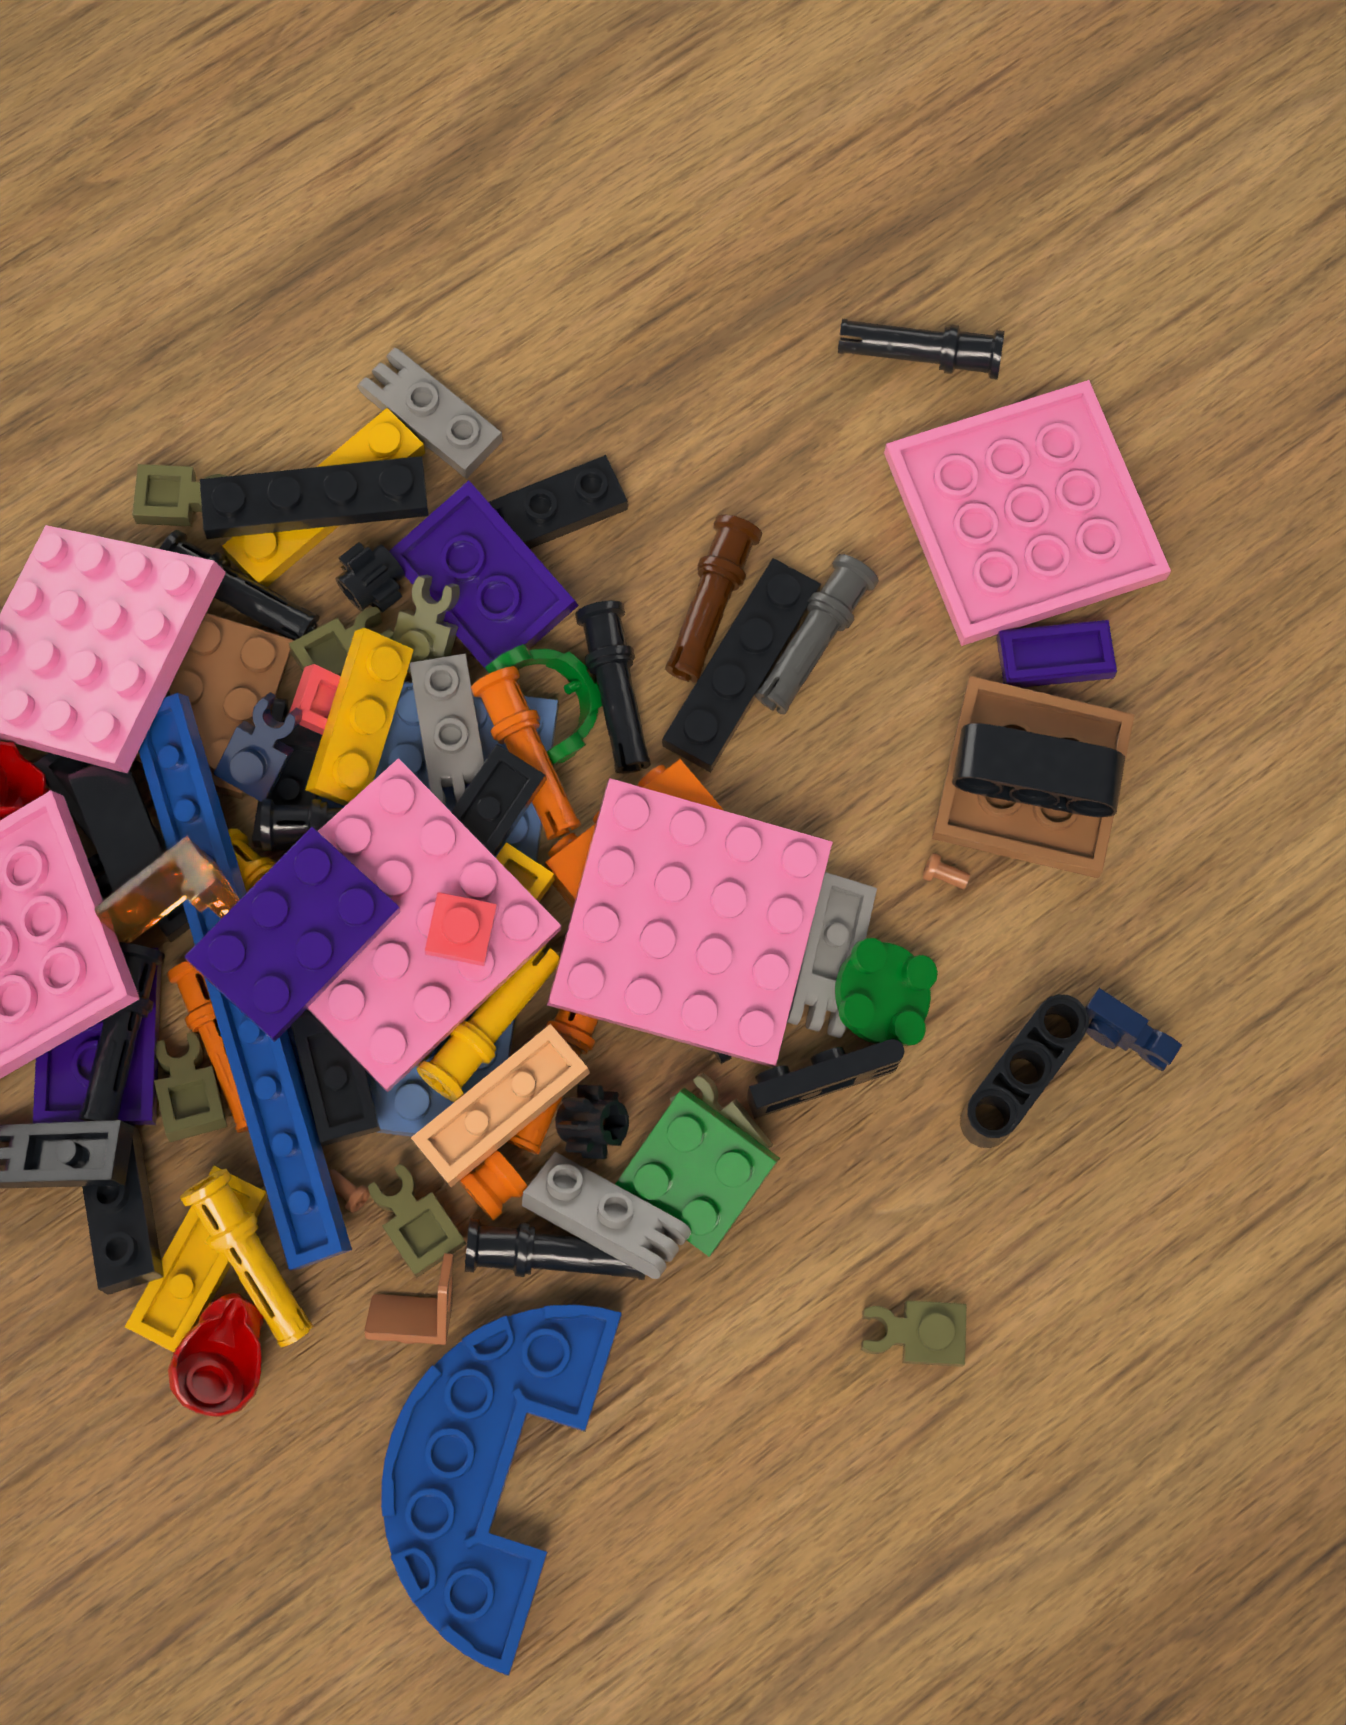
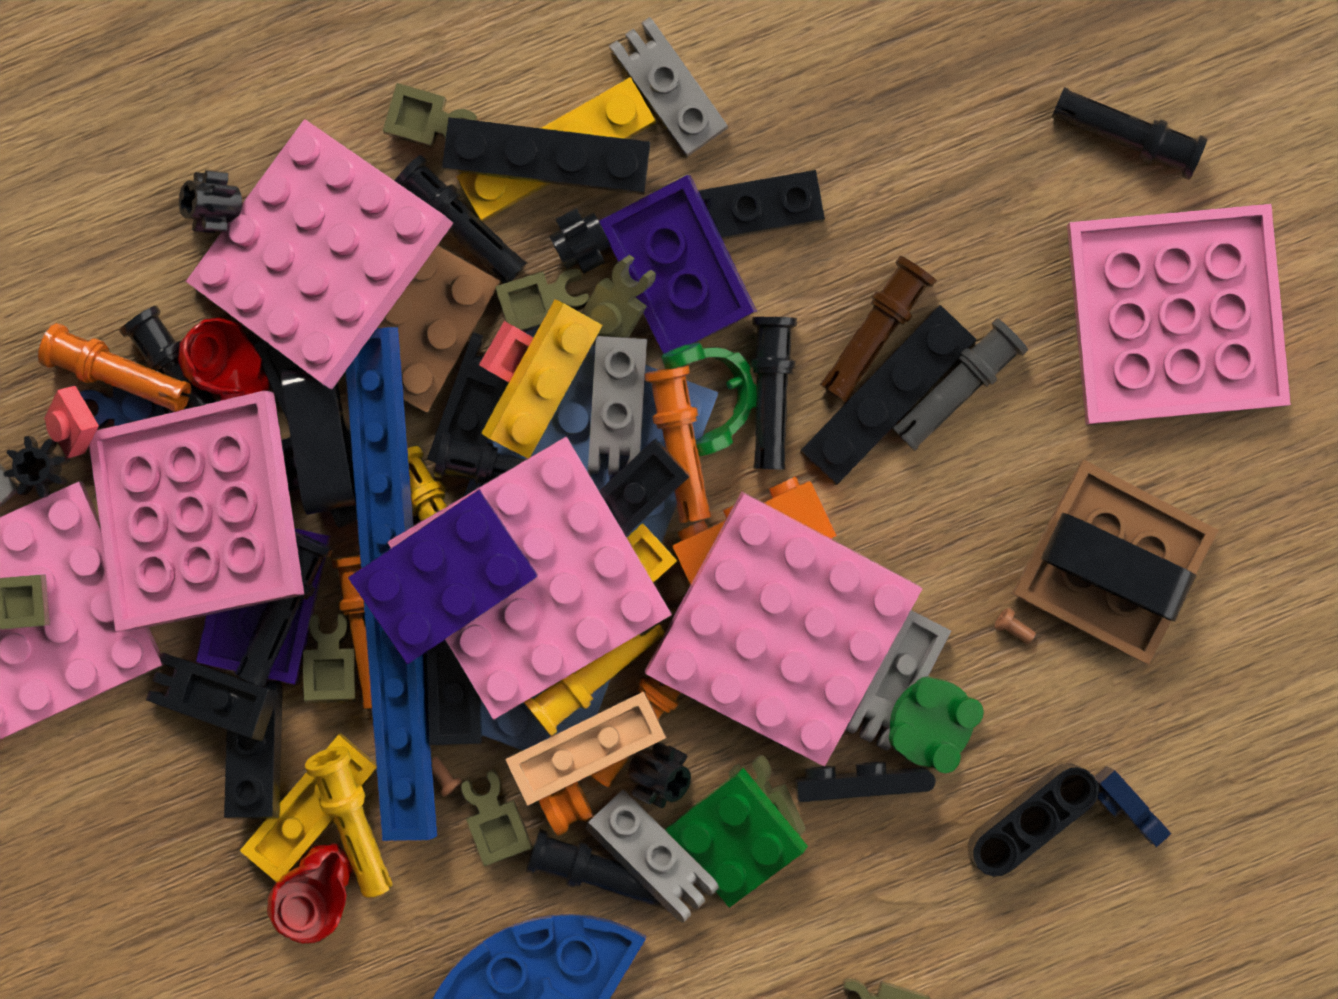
camera: 20 degrees right, 15 degrees up
(162, 886) = (357, 494): clear orange bracket -> none
(256, 754) = (448, 390): dark blue plate -> none
(413, 1318) = (474, 897): nougat bracket -> none
(460, 929) = (585, 604): coral plate -> none
(1056, 654) = (1167, 452): dark purple tile -> none

